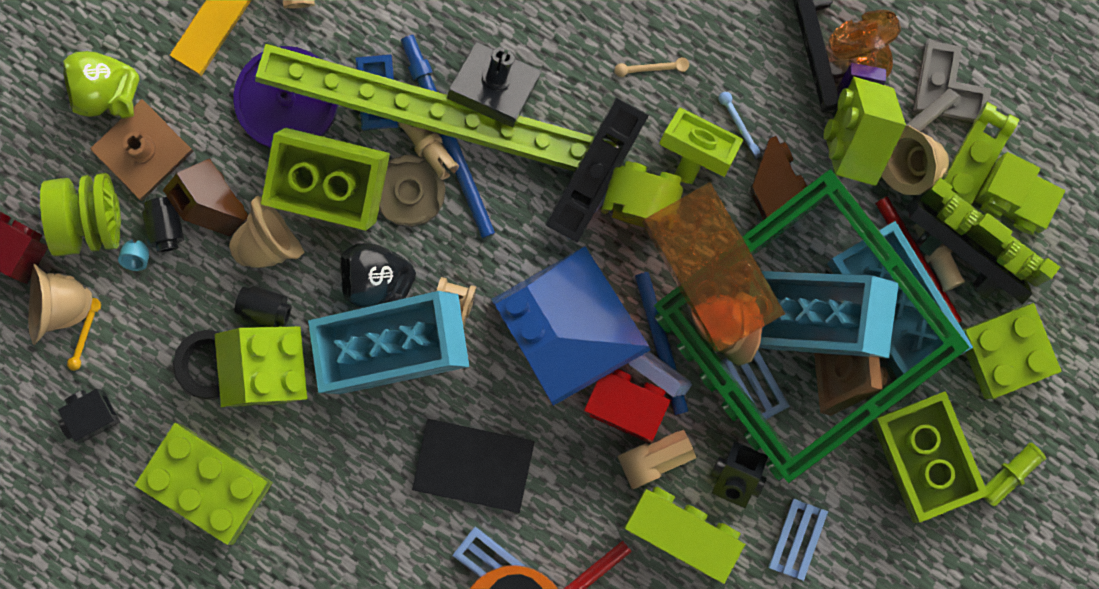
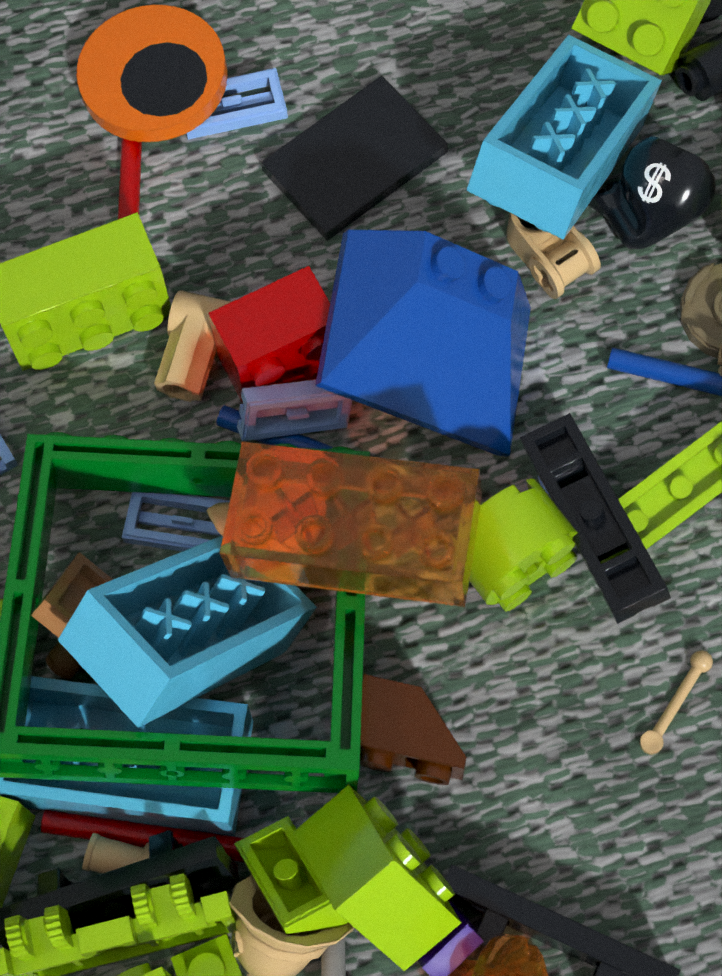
camera: 130 degrees right, 15 degrees down
(699, 145) = (528, 668): lime tile -> none
(725, 98) = (563, 760): light blue hinge -> none
(739, 482) = (91, 405): black brick -> none
(897, 176) = (287, 879): none -> lime slope

